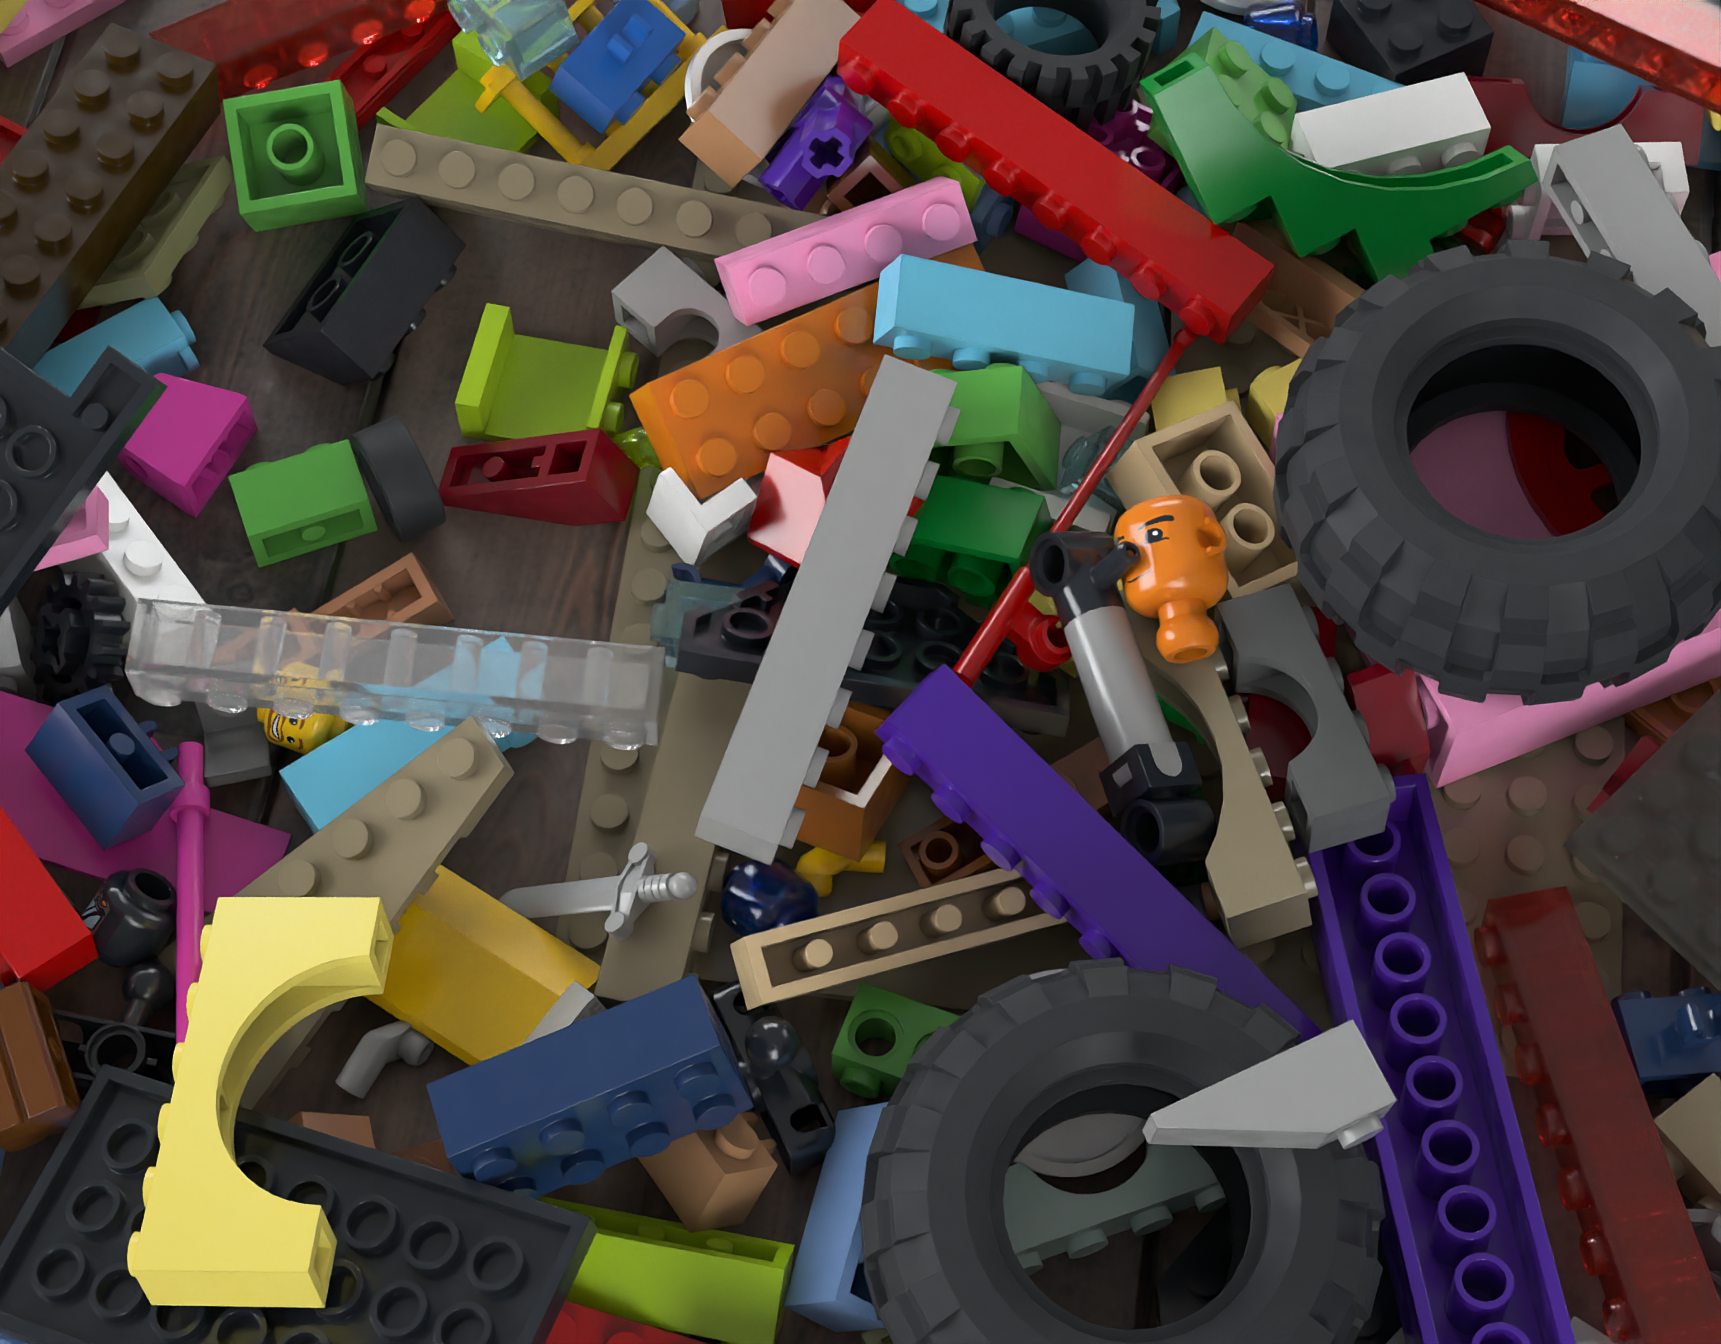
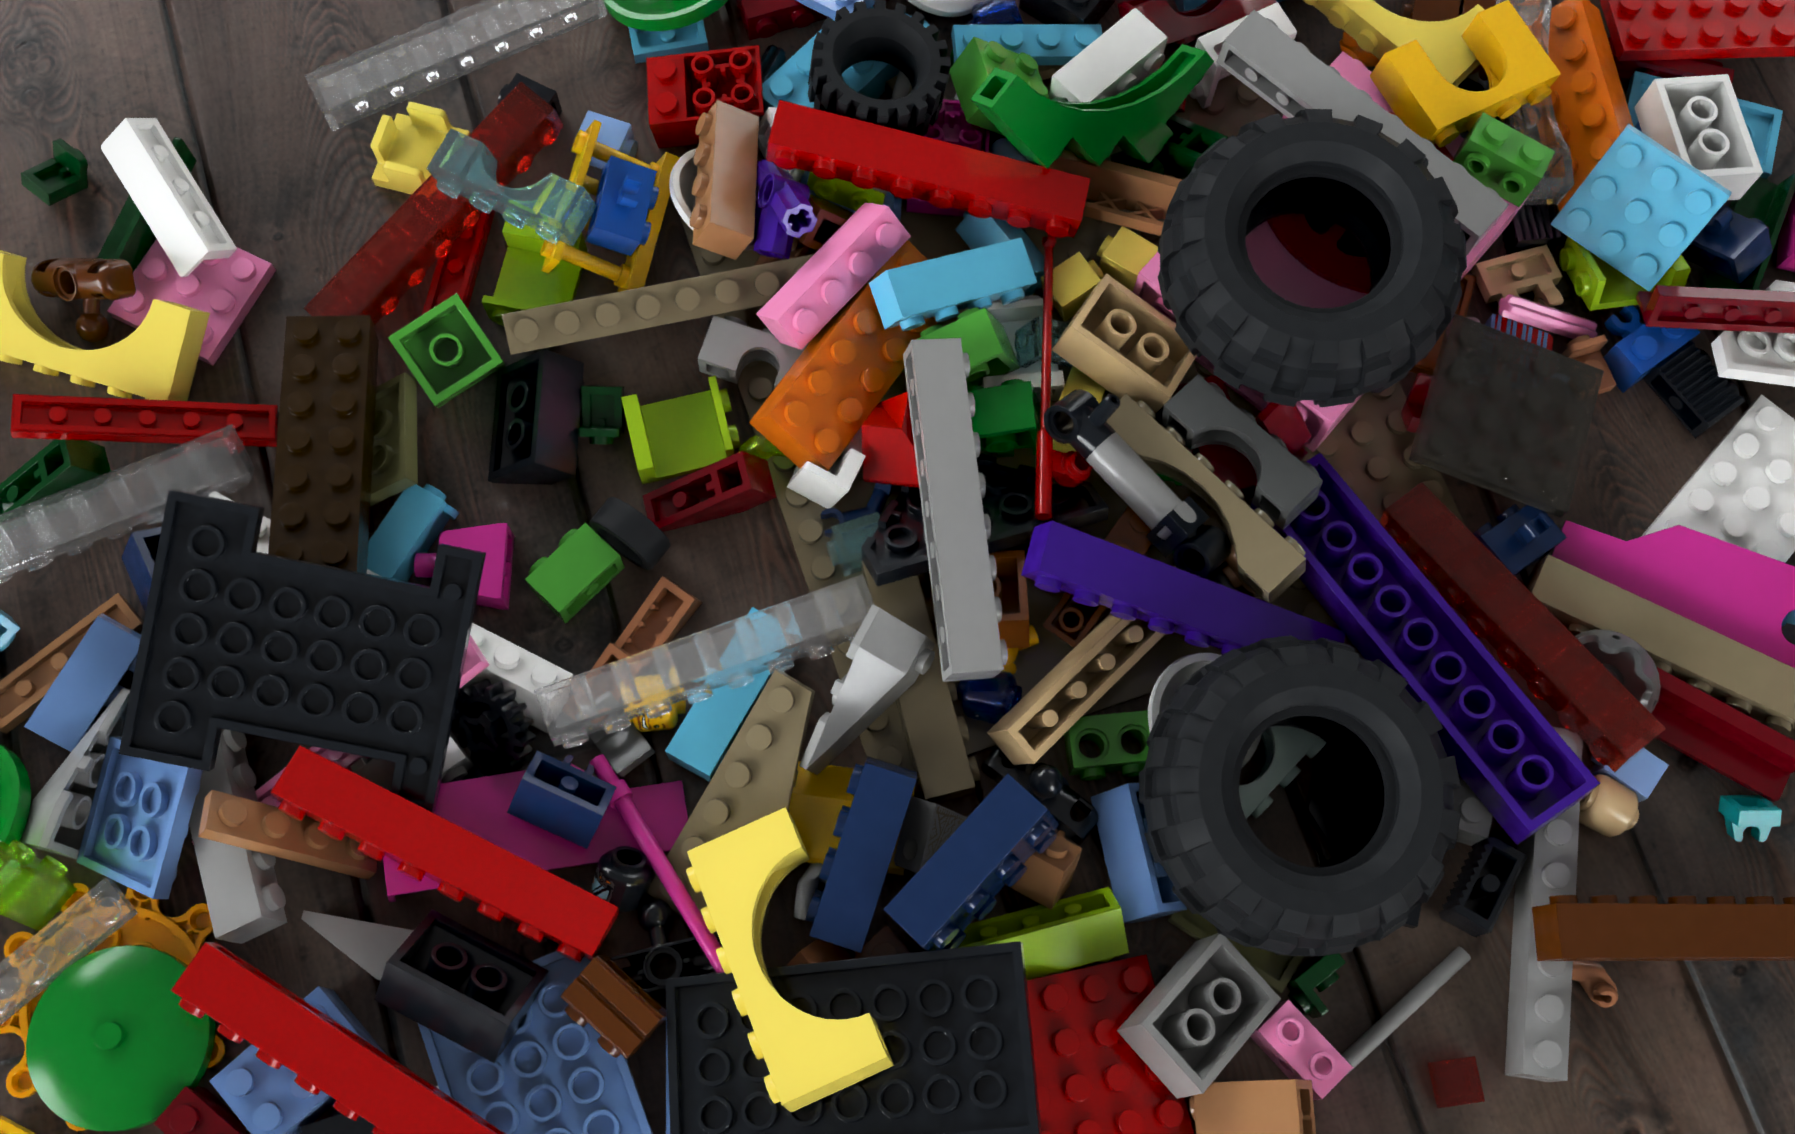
camera: 30 degrees left, 10 degrees up
(452, 317) = (602, 413): none -> dark green bracket
(466, 1006) = (863, 855): none -> dark blue brick
(611, 788) = (884, 665): none -> light grey wedge
(622, 895) = (913, 730): light grey sword -> none
(1178, 572) = (1141, 394): orange piece -> none
(1292, 1100) = (1392, 687): light grey slope -> none

